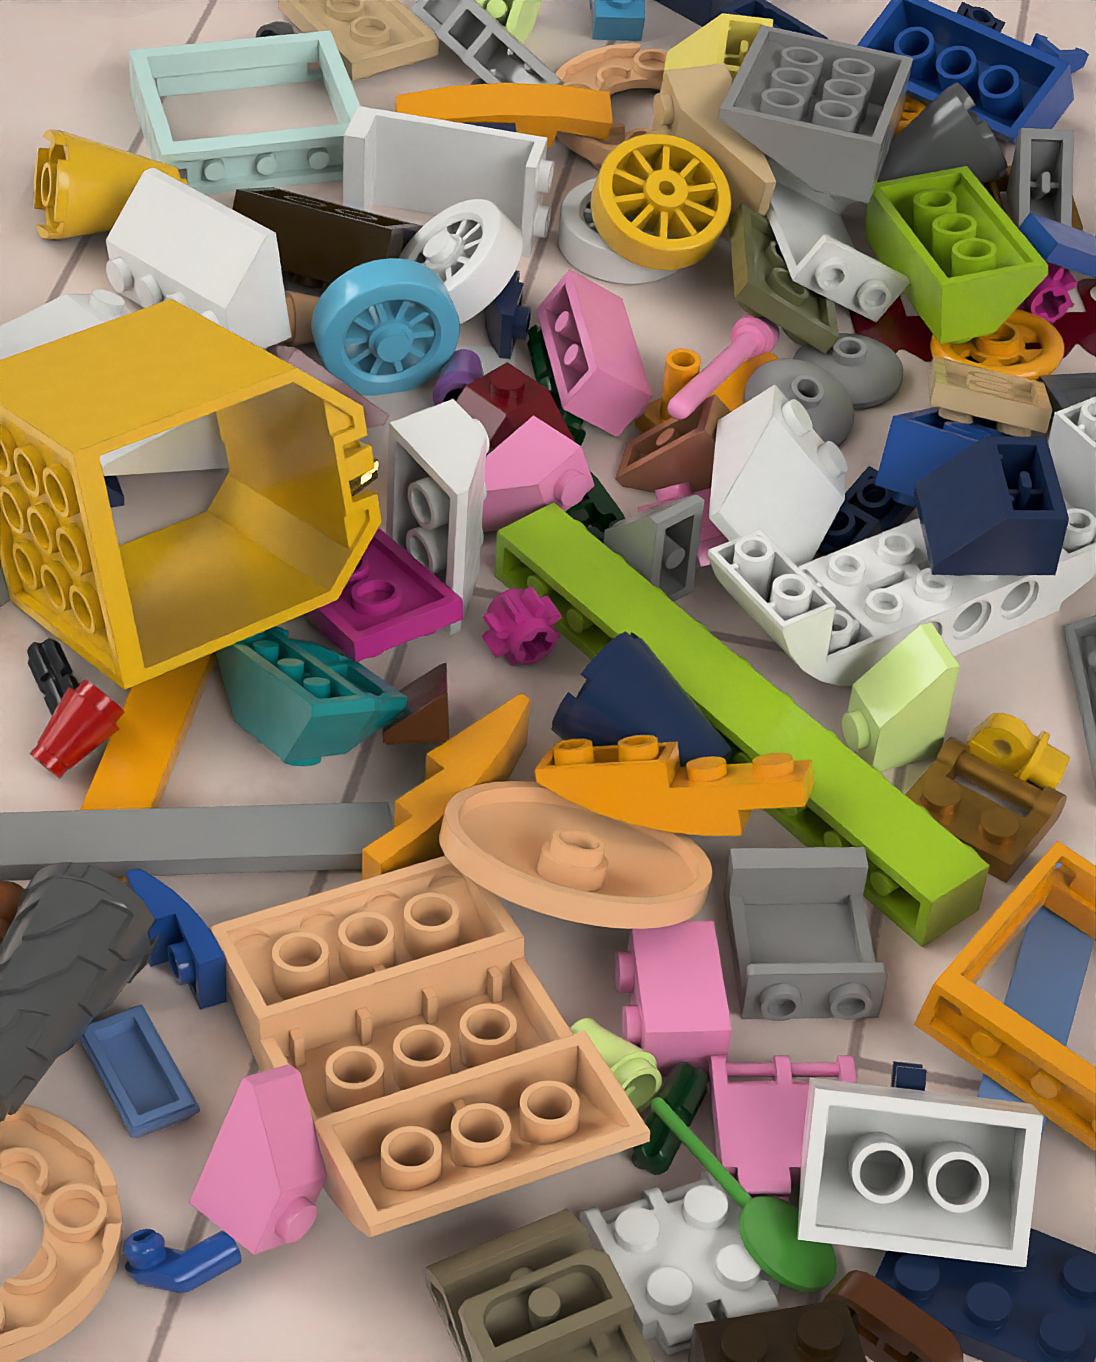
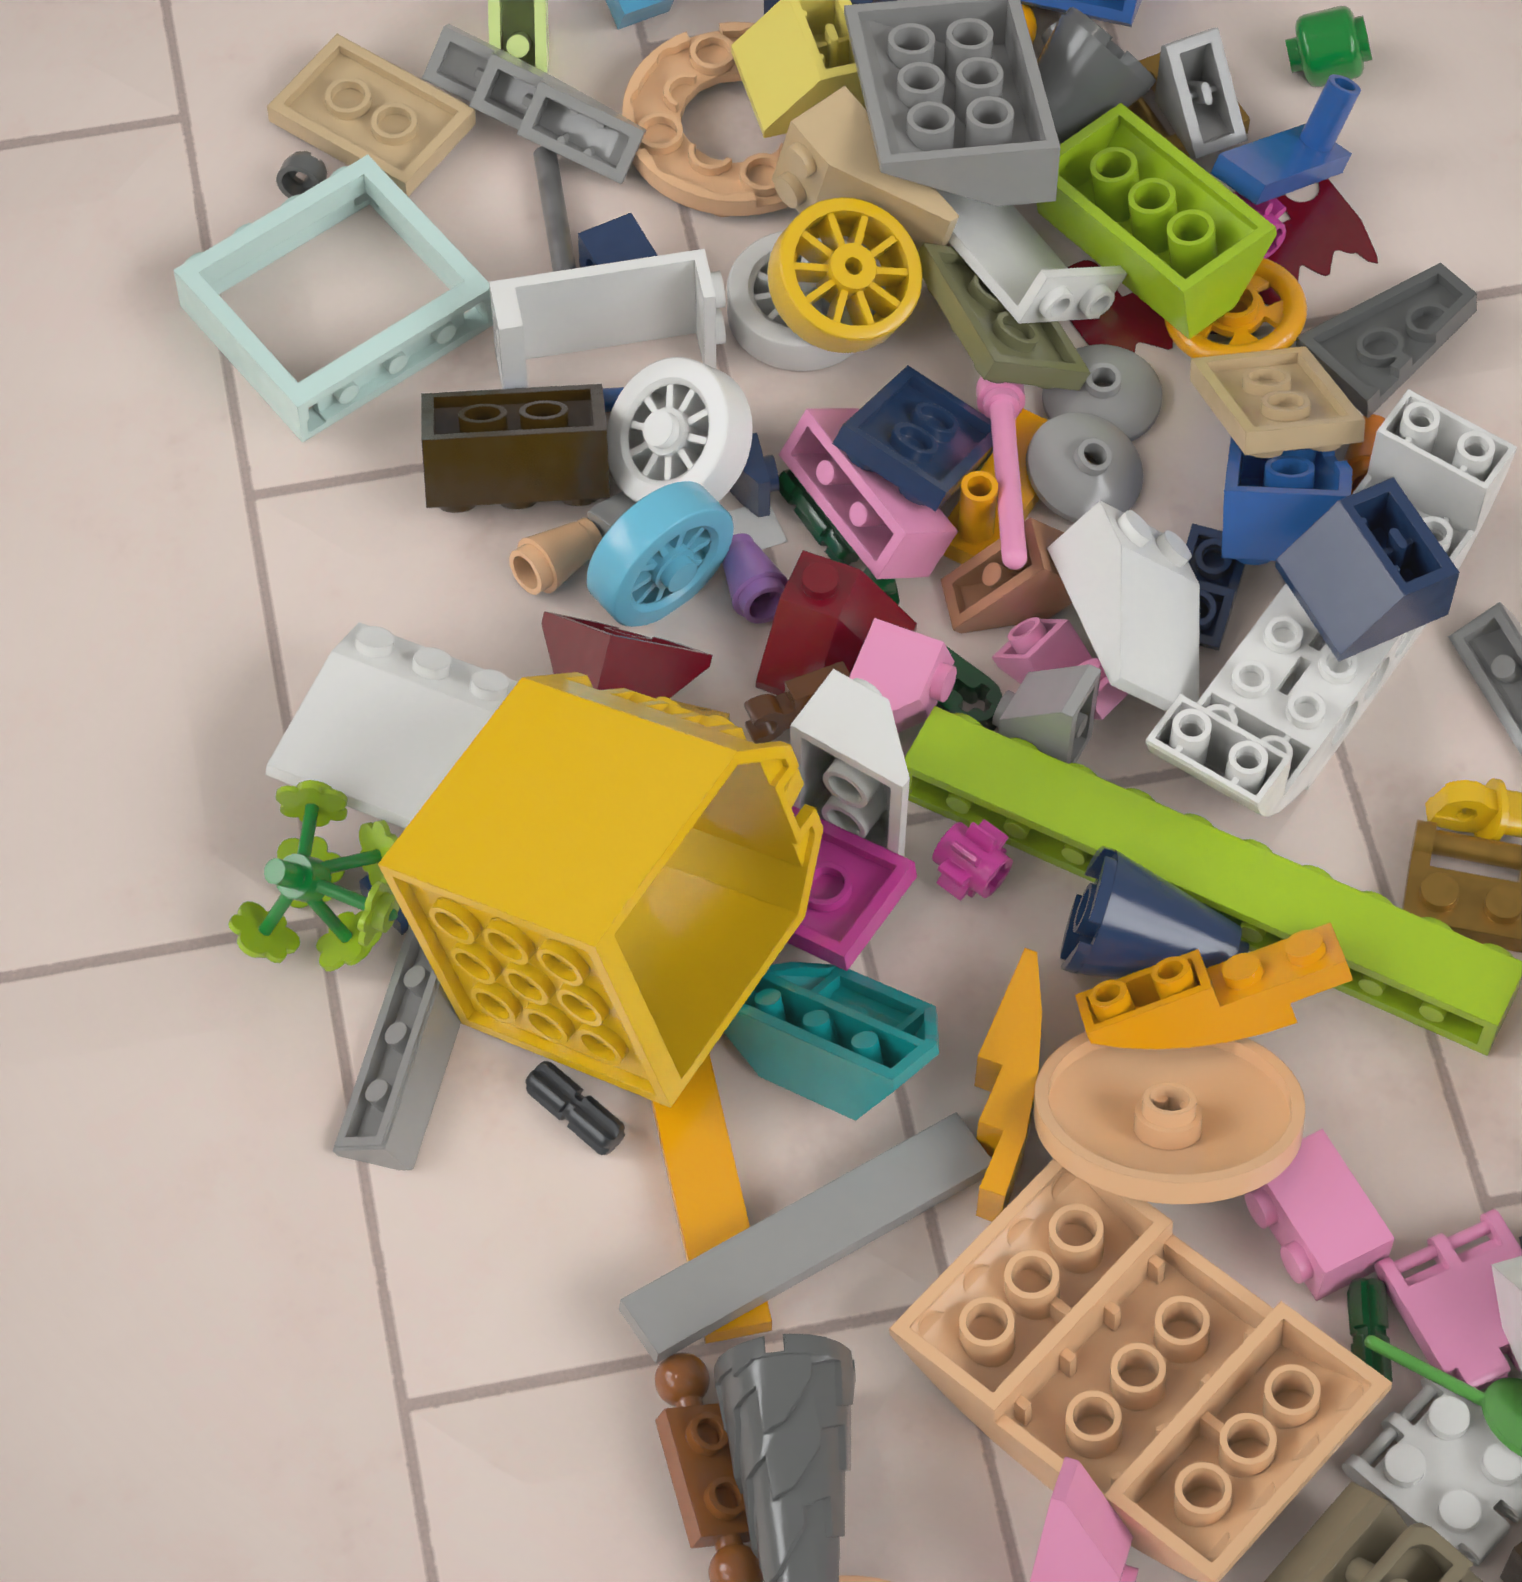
camera: 20 degrees left, 15 degrees up
(76, 728) = (633, 1157): red cone -> none
(85, 184) = (251, 475): yellow cone -> none
(138, 1072) = (901, 1495): medium blue tile -> none
(182, 940) = (879, 1353): blue slope -> none
(202, 256) = (435, 555): white slope -> none
(426, 711) = (938, 981): reddish brown slope -> none
(532, 107) = (636, 183): light orange slope -> none
(630, 1065) = (1312, 1301): yellowish green cone -> none
(648, 318) = (917, 438): none -> dark blue plate
(802, 934) = (1389, 1099): light grey panel -> none
(903, 702) = (1365, 808): yellowish green slope -> none

